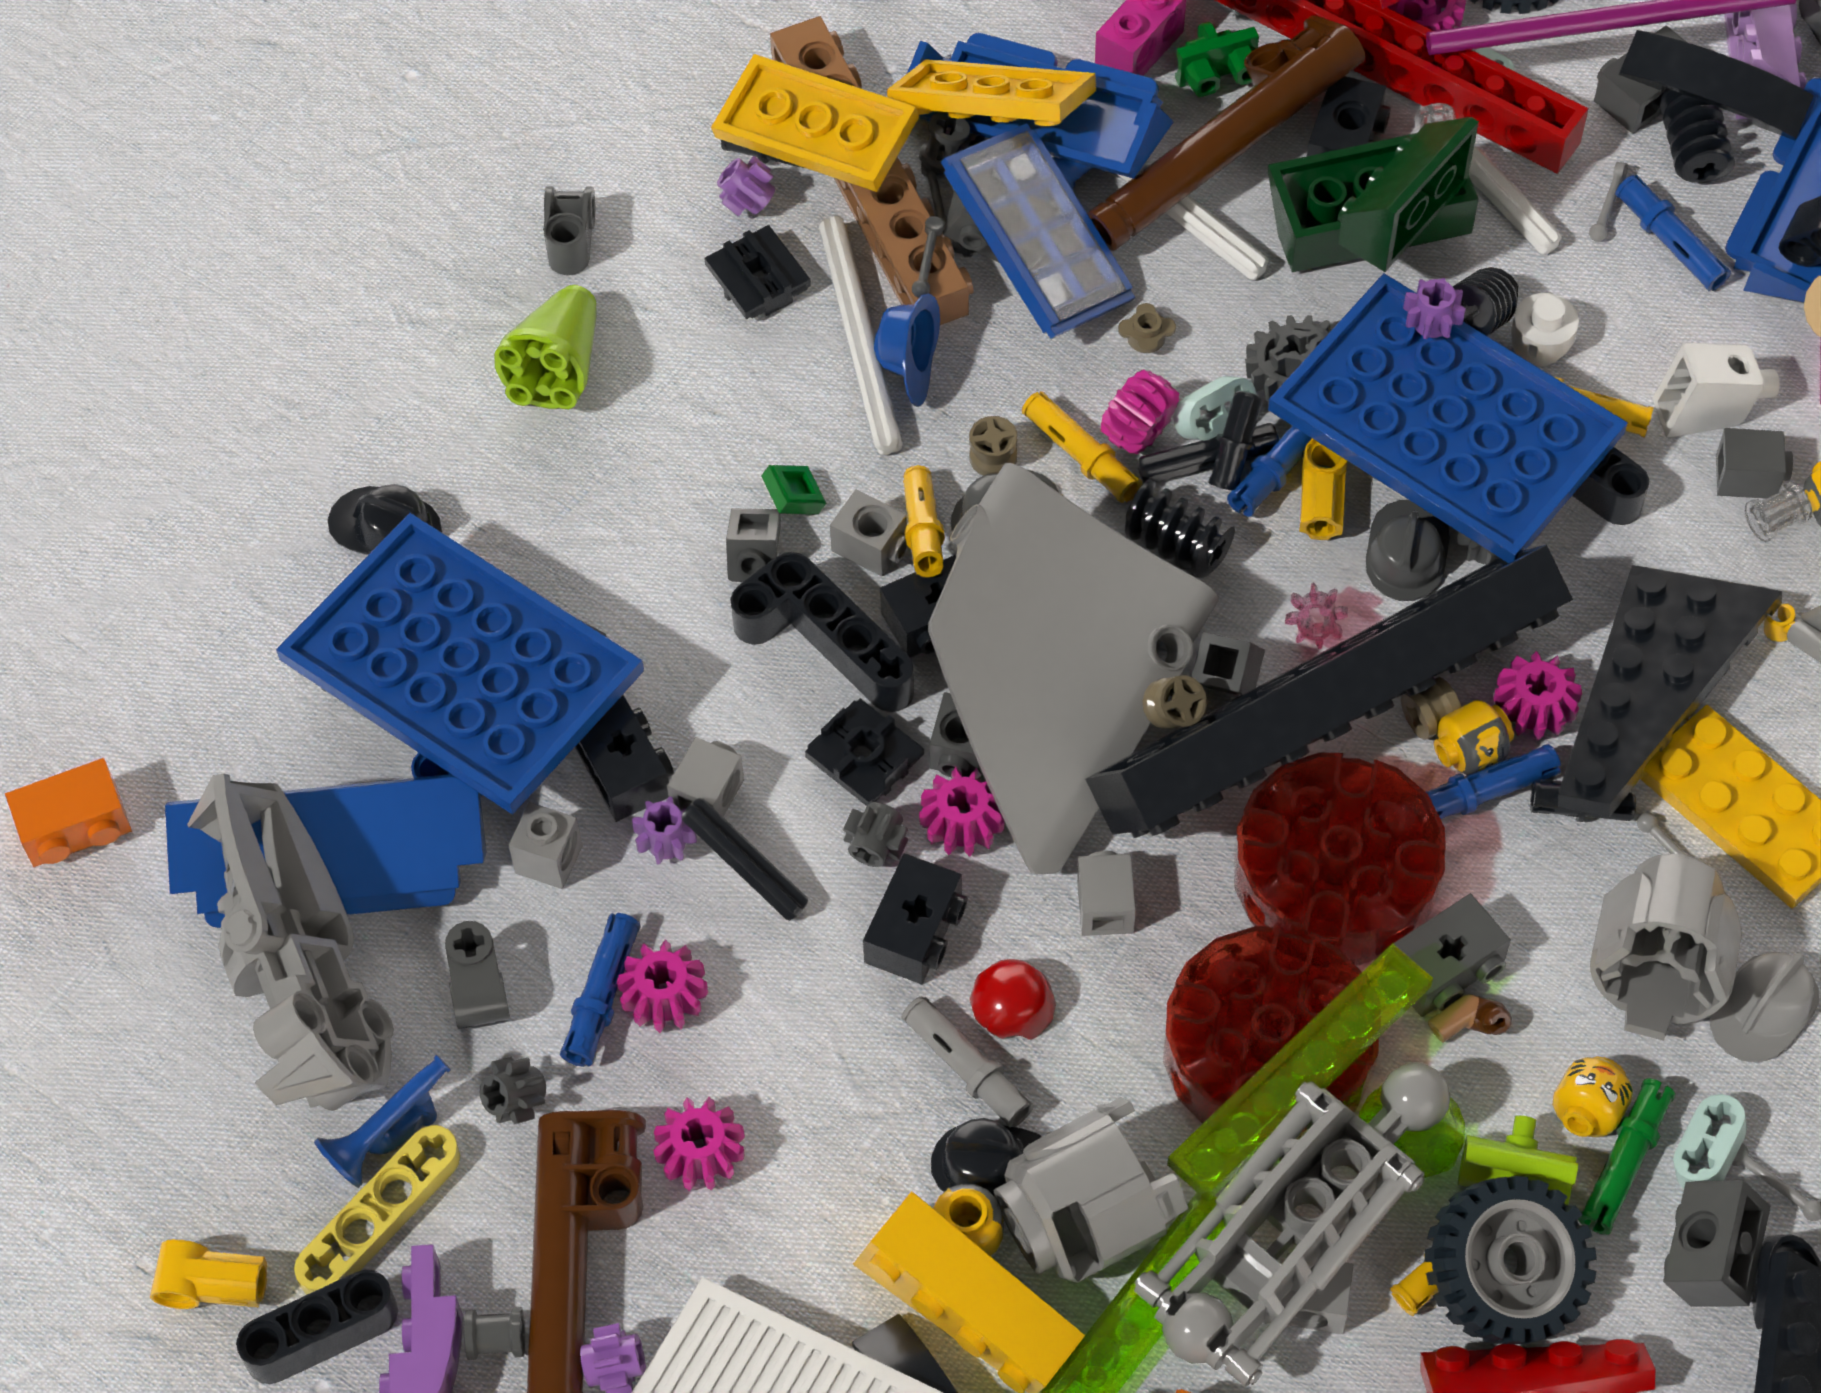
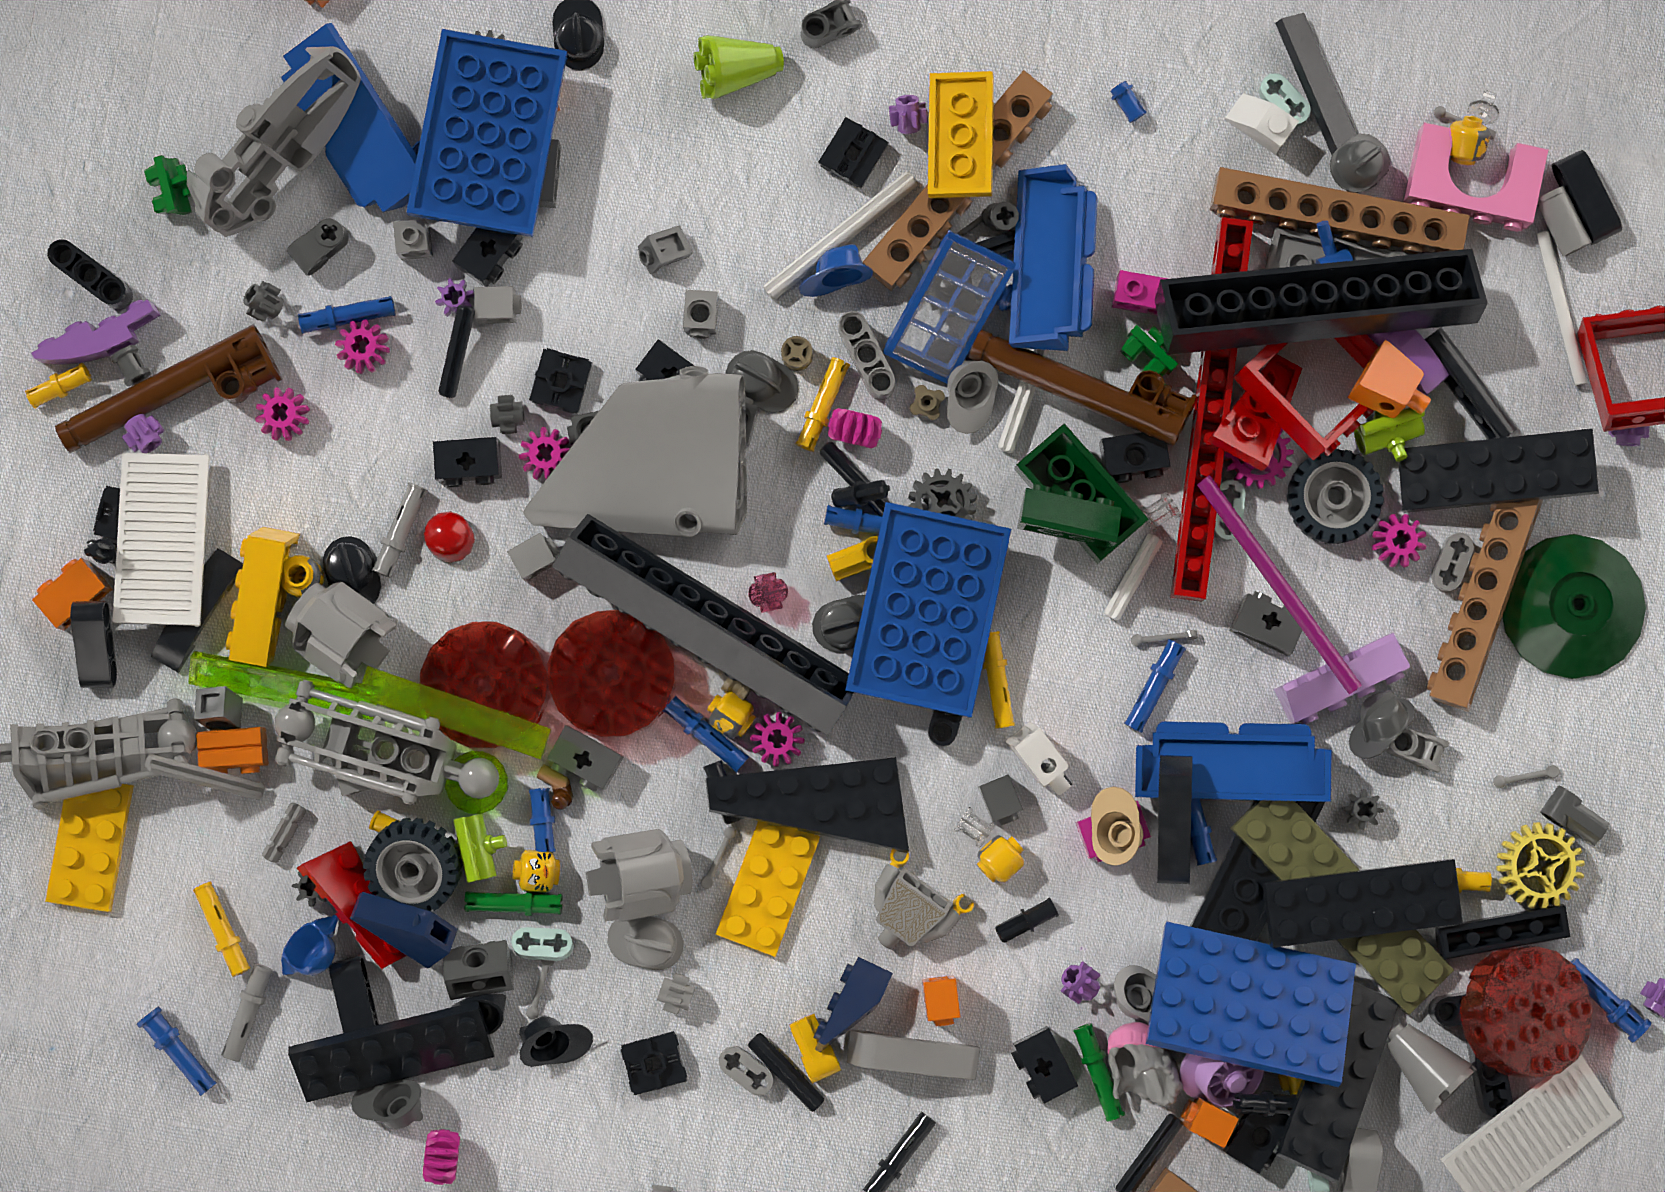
camera: 65 degrees right, 25 degrees up
(193, 1274) = (87, 196): yellow piece -> none
(231, 1145) = (173, 183): none -> green hips
(371, 1206) = (170, 263): light yellow beam -> none
(388, 1126) = (184, 235): blue piece -> none
(793, 489) = (710, 253): green tile -> none
(830, 636) = (621, 327): black beam -> none
(924, 530) = (707, 345): yellow pin -> none
(933, 228) = (923, 244): dark grey hinge -> none
(994, 91) = (1036, 229): yellow plate -> none
(1067, 362) = (863, 340): none -> light grey beam
(1163, 267) = (971, 395): none -> light grey piece
(1175, 532) = (787, 486): black piece -> none
(1187, 700) = (654, 549): dark tan wheel -> none
(1212, 399) = (883, 468): light aqua beam -> none
(1227, 664) = (705, 557): dark grey brick -> none
(1434, 308) = (994, 563): medium lavender gear -> none
(1489, 299) = (1030, 593): black piece -> none
(1514, 1058) = (542, 820): none -> blue pin
(1546, 323) = (1042, 637): white piece -> none
(1612, 1303) = (405, 927): none -> dark blue slope
(1696, 138) = (1235, 670): black piece -> none
(1717, 81) = (1263, 669): black slope -> none

